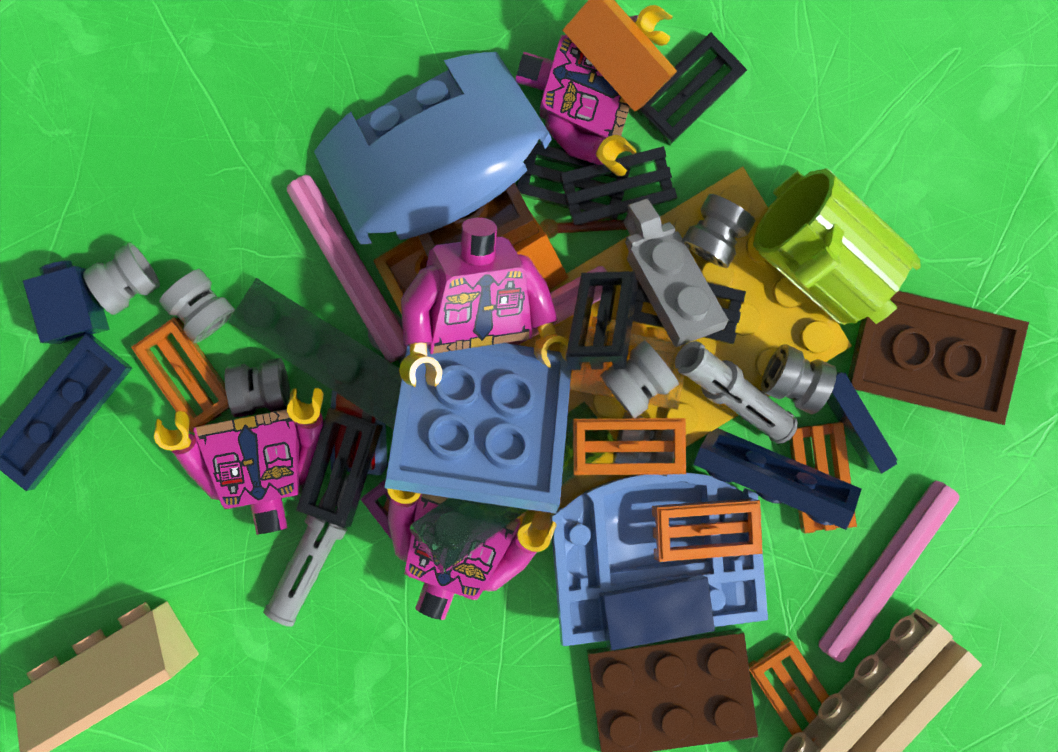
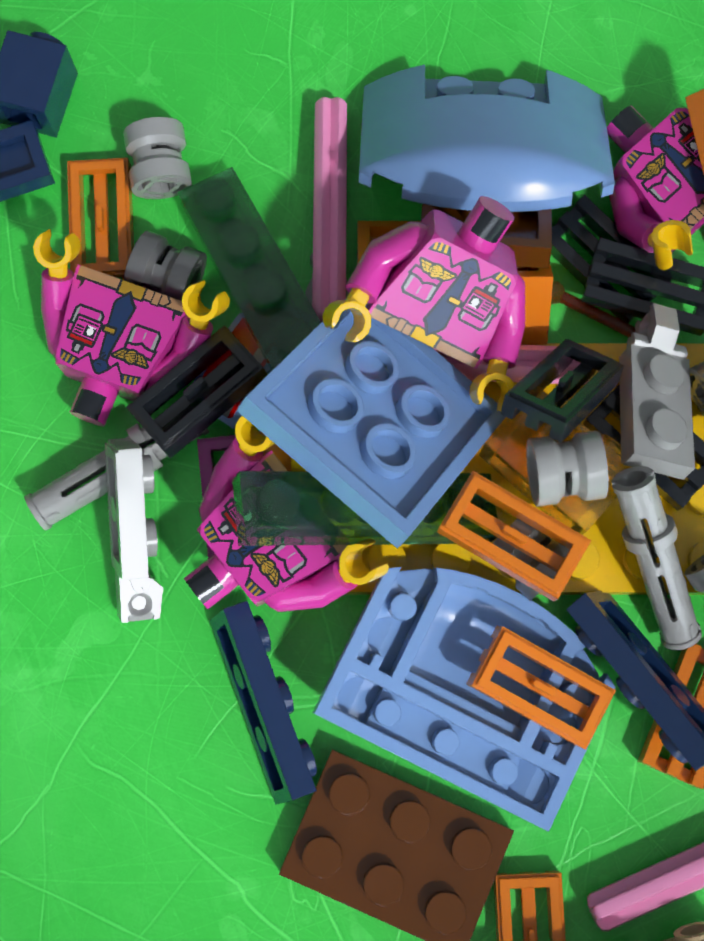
camera: 25 degrees right, 10 degrees down
(121, 279) = (101, 90): light grey wheel -> none
(358, 595) = (131, 533): none -> hinge
(523, 652) = (264, 703): none -> dark blue plate
(657, 612) = (436, 740): dark blue tile -> none

